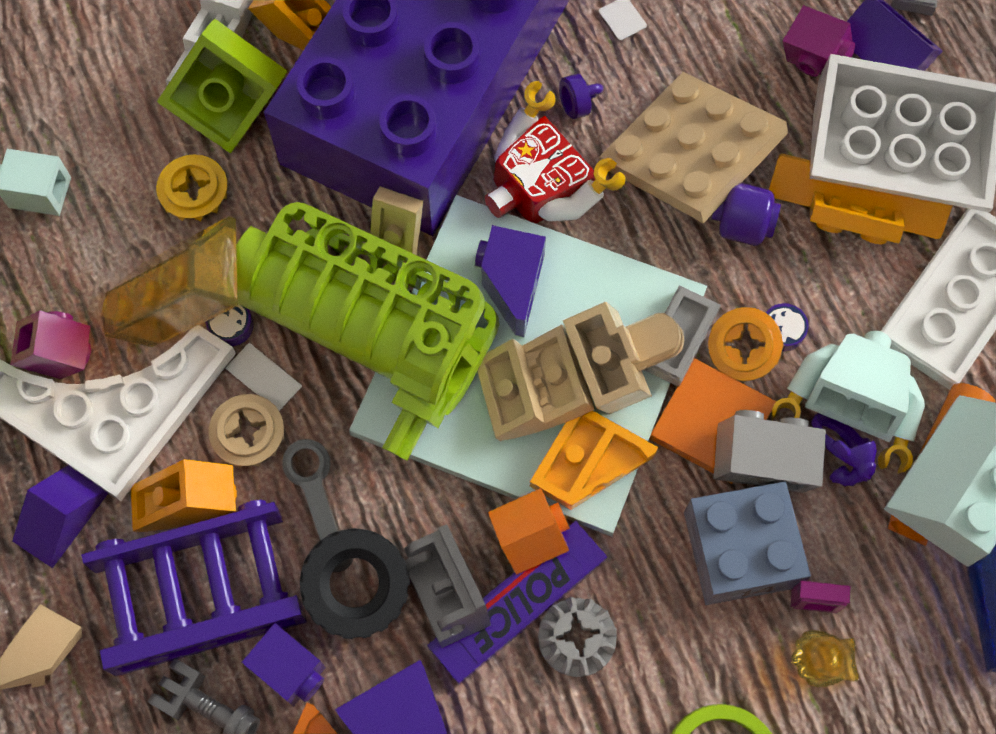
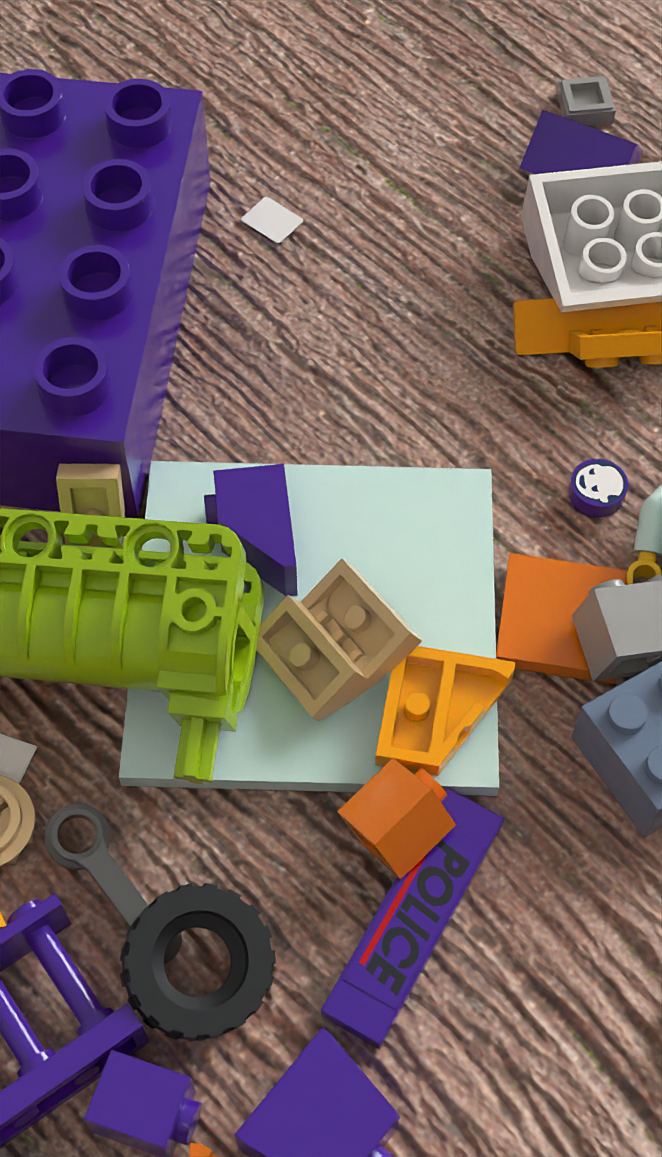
camera: 20 degrees left, 10 degrees down
(445, 587) = (320, 924): flat silver hinge -> none
(543, 171) = (247, 402): torso -> none
(564, 655) = (500, 959): light grey gear -> none
(577, 96) = (255, 310): dark purple tile -> none
(617, 354) = (425, 566): tan brick -> none
(694, 145) = (412, 322): tan plate -> none
(695, 318) = (483, 533): light grey tile -> none
(730, 329) = (577, 493): light orange gear -> none
(747, 214) = (504, 375): dark purple head -> none
(814, 38) = (501, 174): magenta brick -> none

